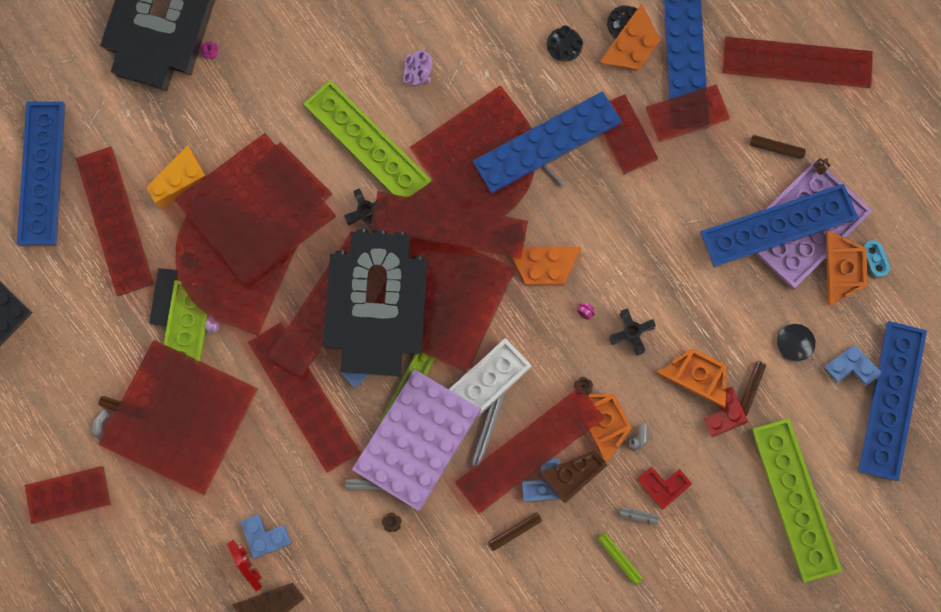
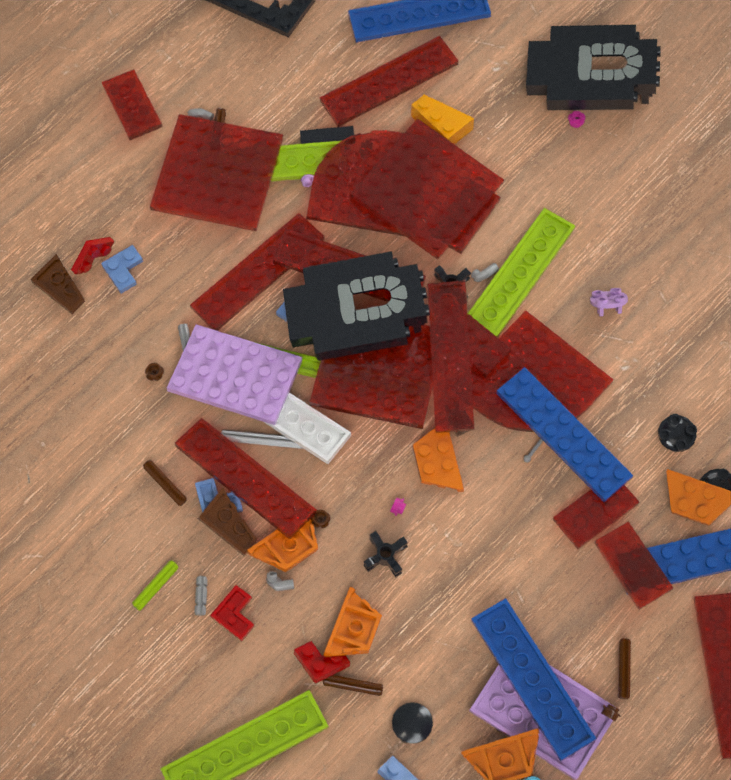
camera: 75 degrees right, 10 degrees down
(360, 174) = (484, 274): none -> light grey arm

